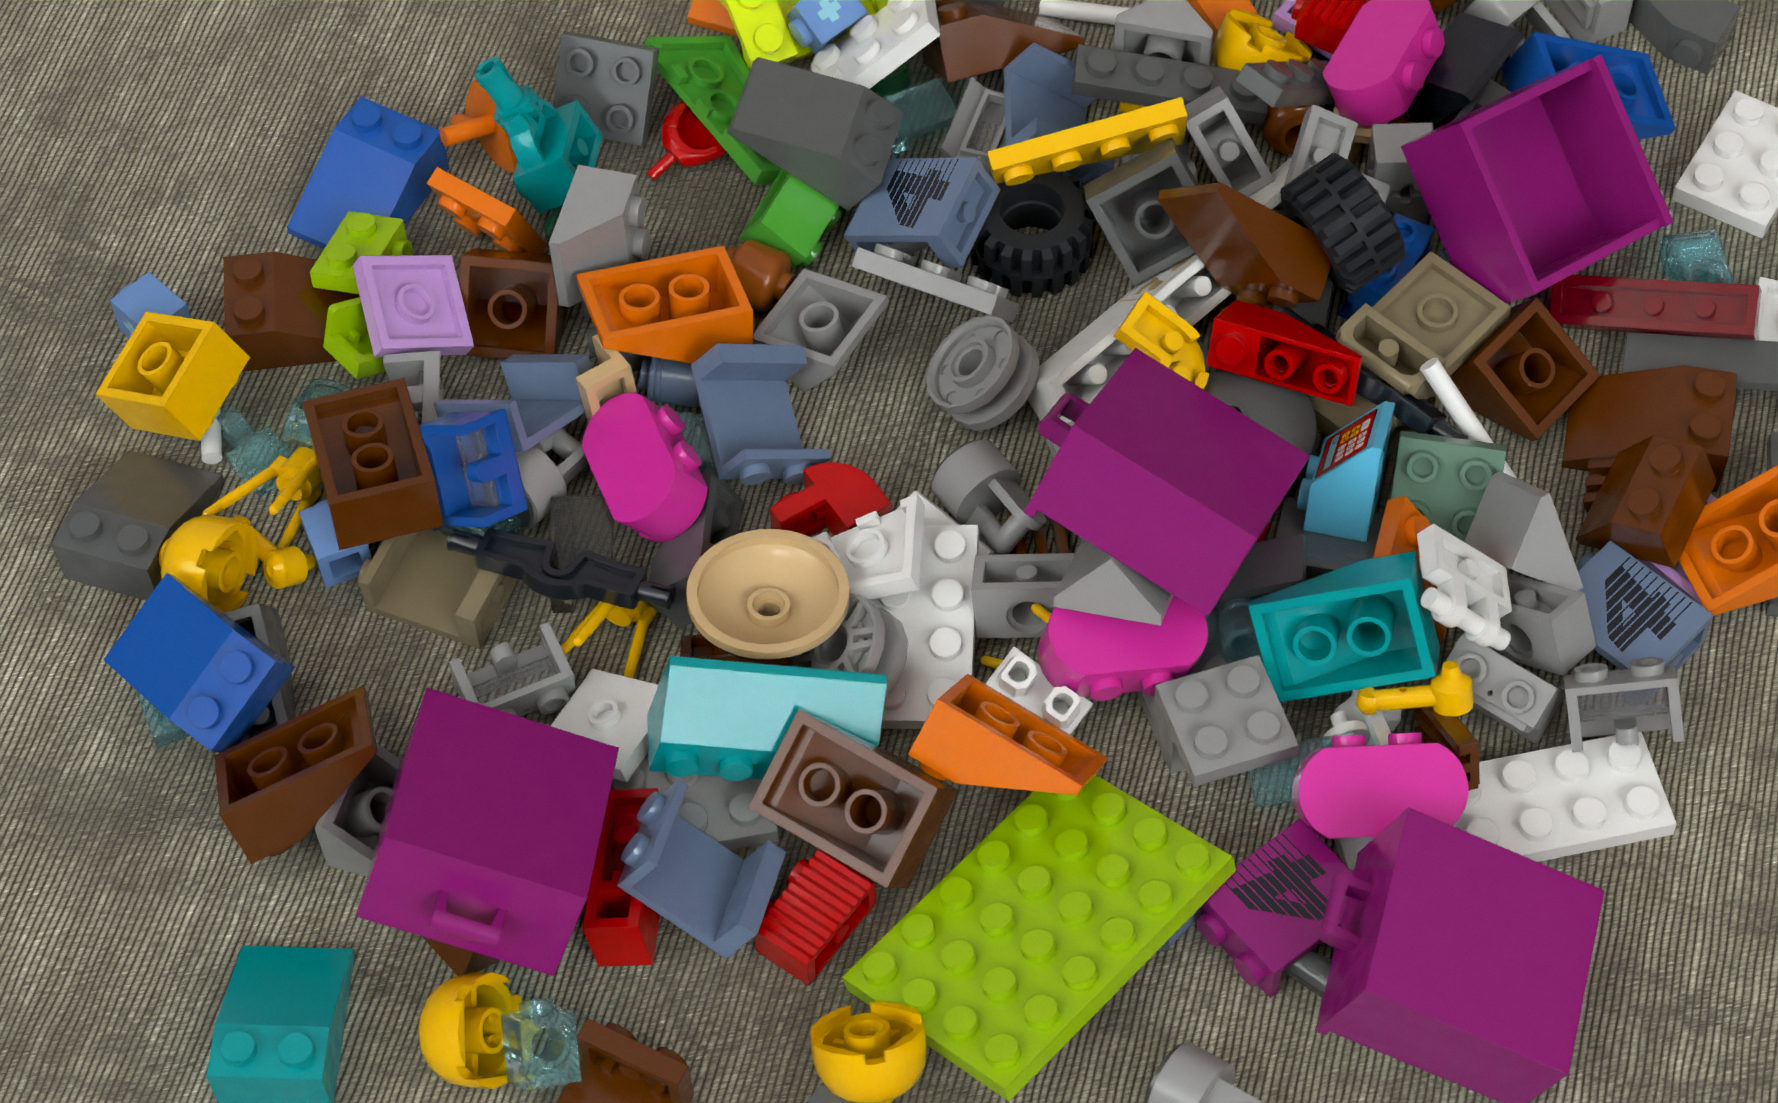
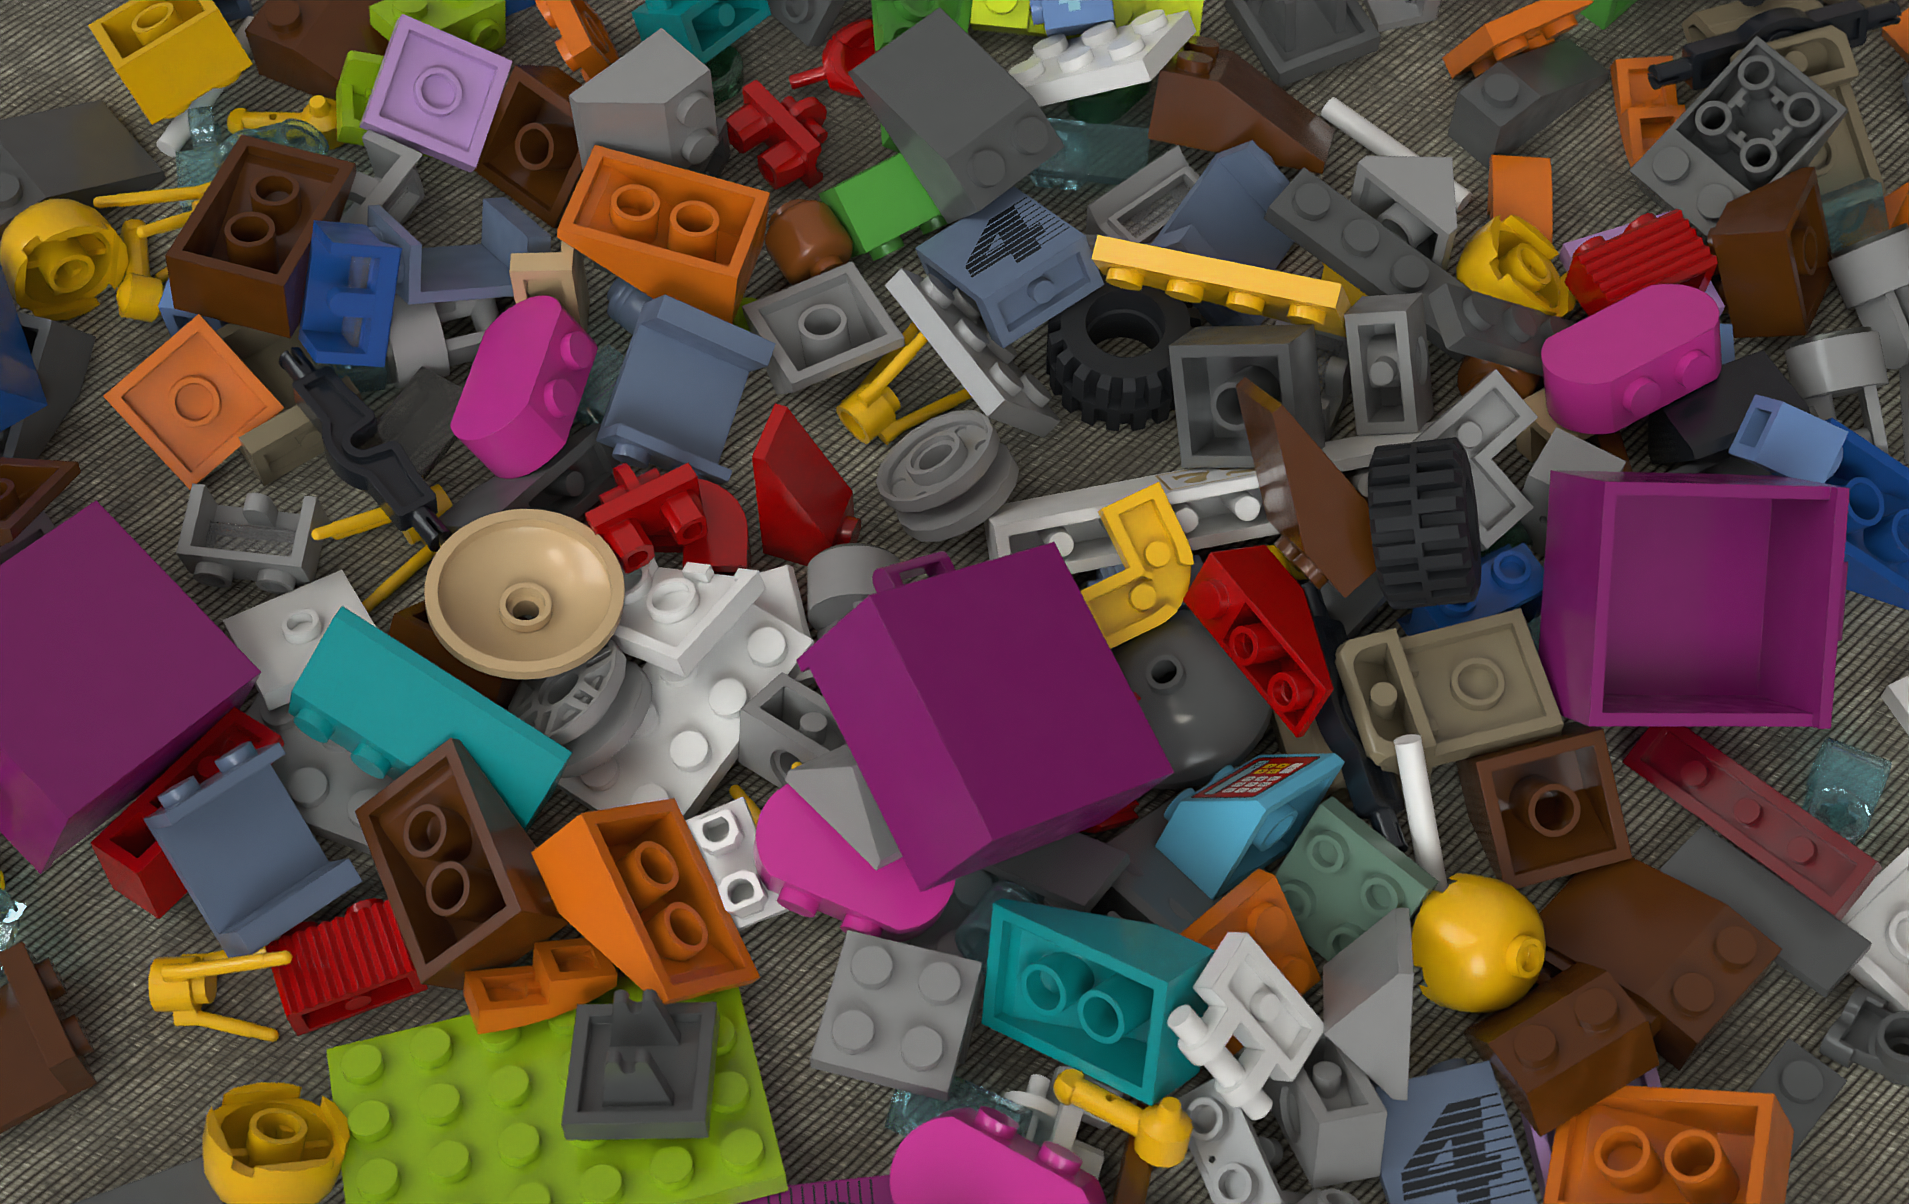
camera: 30 degrees right, 5 degrees up
(317, 367) = (318, 113): none -> yellow piece
(398, 609) = (193, 401): none -> orange plate
(683, 212) = (789, 130): none -> red hips
(708, 990) = (191, 980): none -> yellow plant
(795, 496) = (644, 507): none -> red hips
(885, 363) = (872, 405): none -> yellow plant
(898, 439) = (799, 493): none -> red slope
(969, 844) = (555, 983): none -> orange slope
(1088, 846) = (641, 1069): none -> dark grey plate
(1523, 55) = (1788, 441): none -> medium blue brick
(1561, 464) = (1478, 944): none -> yellow cylinder

